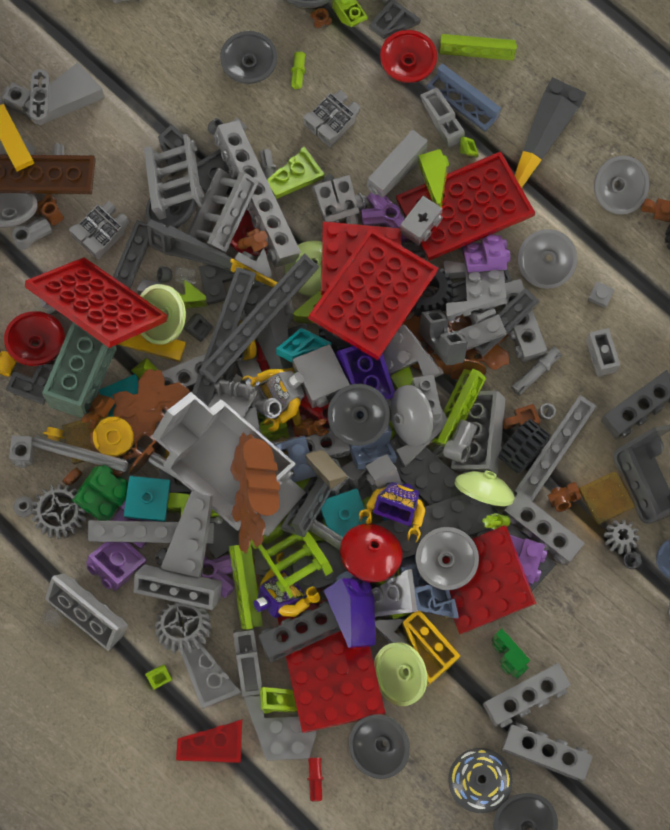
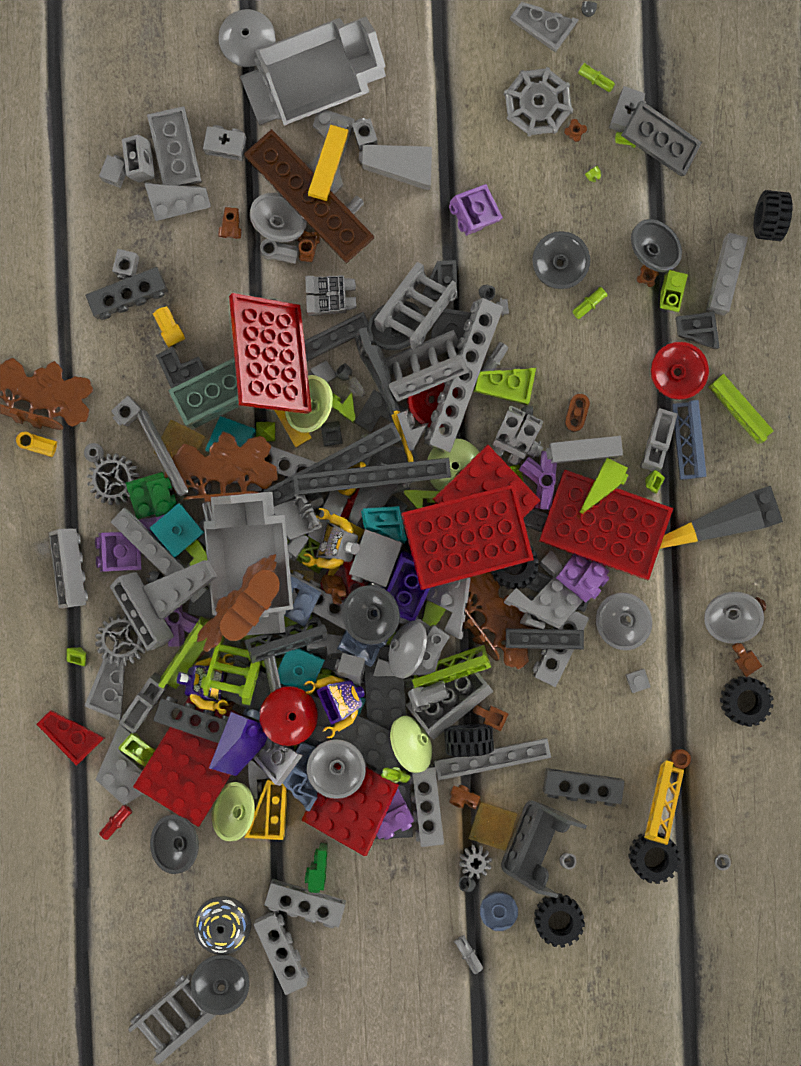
camera: 45 degrees right, 15 degrees up
(31, 329) = (205, 324): red dish -> none
(35, 89) = (378, 158): light grey beam -> none
(54, 433) = (159, 419): yellow plate -> none
(72, 477) = (144, 463): dark orange tile -> none
(100, 408) = (204, 433): dark orange plate -> none
(113, 436) = (195, 463): yellow tile -> none
(151, 79) = (475, 209): none -> medium lavender plate
(255, 239) = (425, 413): dark orange plate -> none
(270, 407) = (316, 548): light grey cone -> none
(326, 468) = (312, 631): dark tan slope -> none
(331, 118) = (583, 360): light grey hips -> none
(366, 151) = (577, 413): none -> dark orange plate
(421, 220) = (569, 503): light grey brick -> none
(448, 346) = (483, 623): dark grey arch -> none
(483, 332) = (516, 630): light grey plate -> none
(543, 364) = (545, 692): light grey pin -> none
(550, 413) = (514, 730): light grey hinge -> none
(603, 352) = (593, 725): light grey brick -> none

